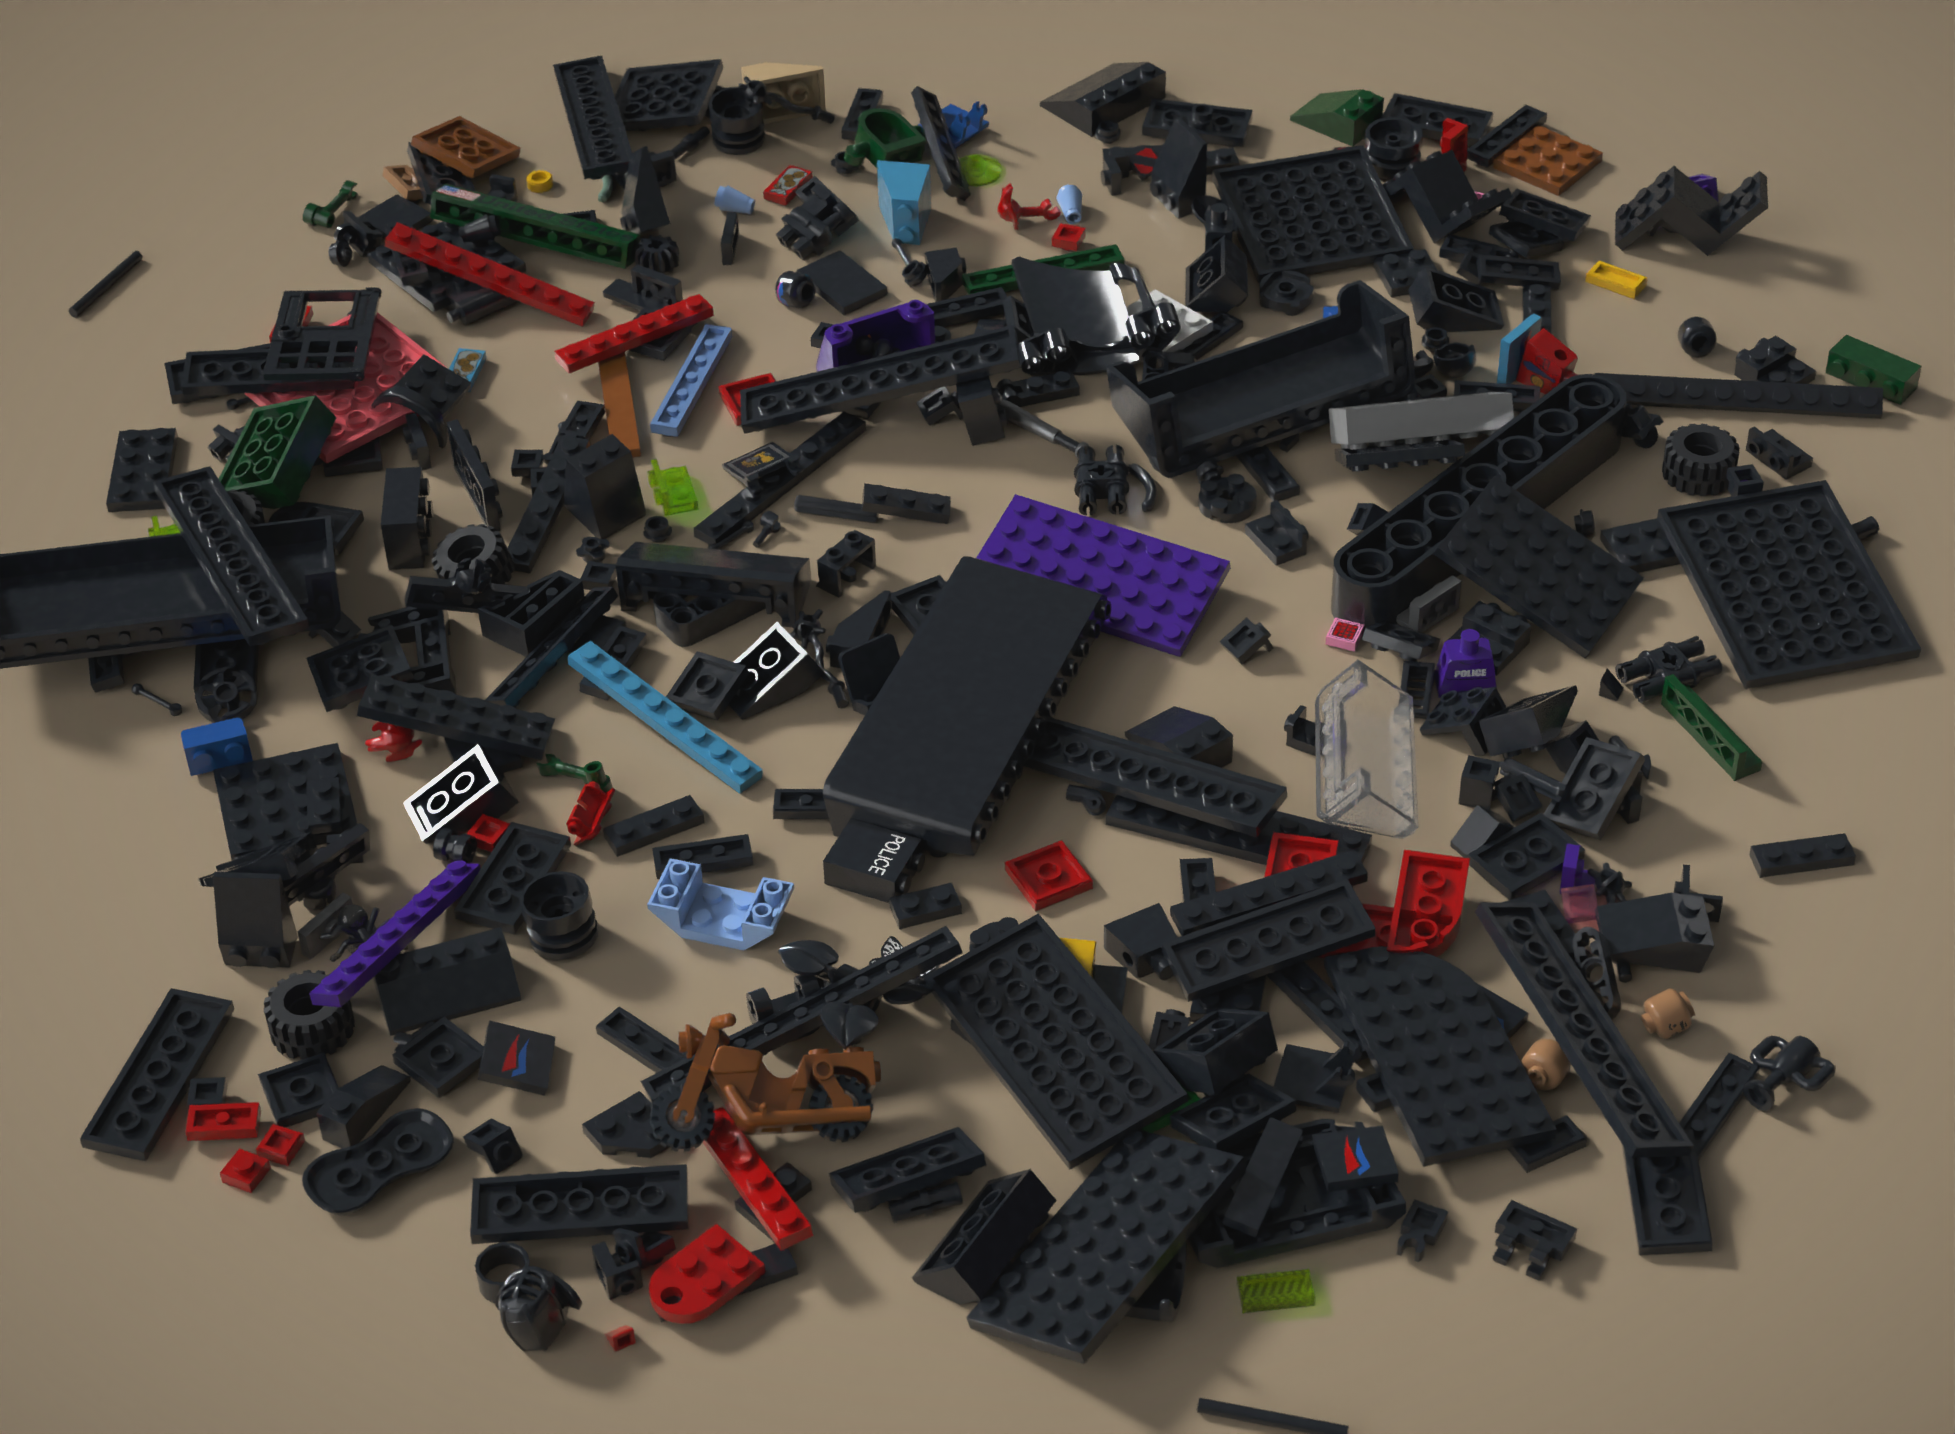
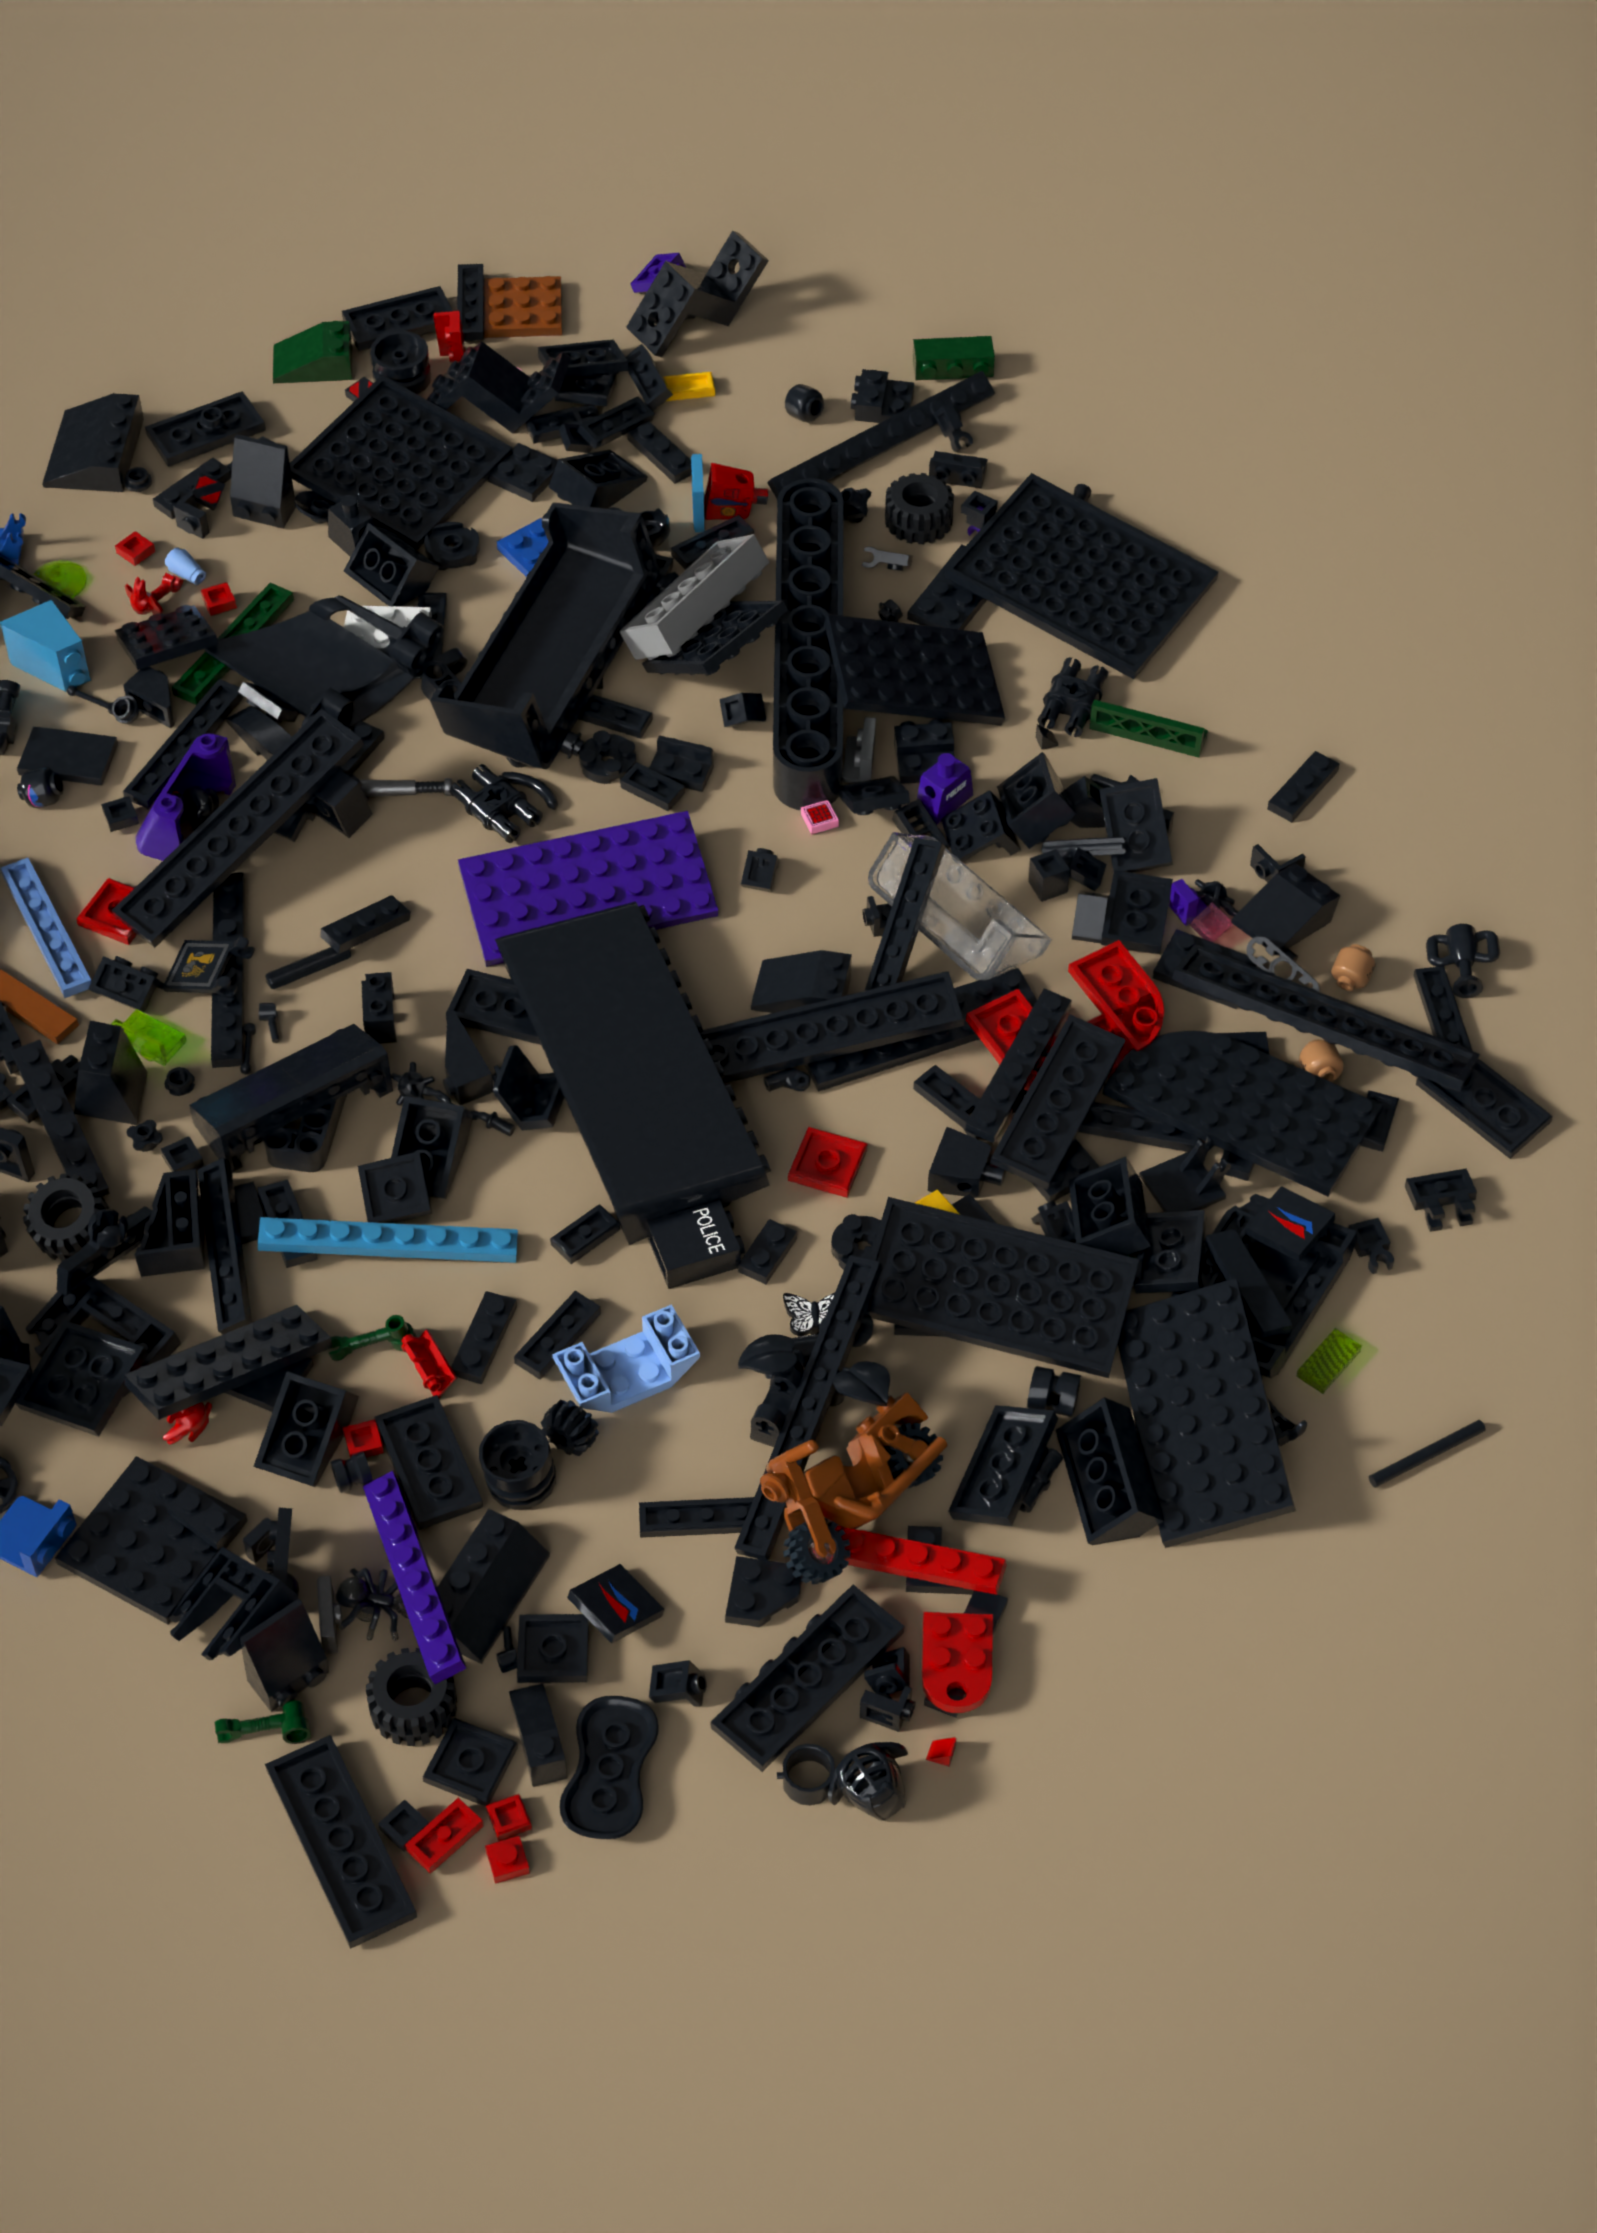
camera: 45 degrees left, 10 degrees up
(220, 978) = (292, 1722): none -> dark green brick
(626, 918) = (569, 1427): none -> black gear
(698, 444) = (125, 984): none -> black bracket
(996, 239) = (166, 636): none -> black plate
(1012, 1145) = (1045, 1382): none -> black wheel
(1050, 174) = (135, 548): none -> red plate
(1235, 536) = (652, 786): none -> black plate
(1309, 727) = (906, 913): none -> black plate
(1584, 254) = (647, 377): none -> black plate
(1635, 487) = (895, 560): none -> black plate
(1807, 410) = (950, 424): none -> black plate

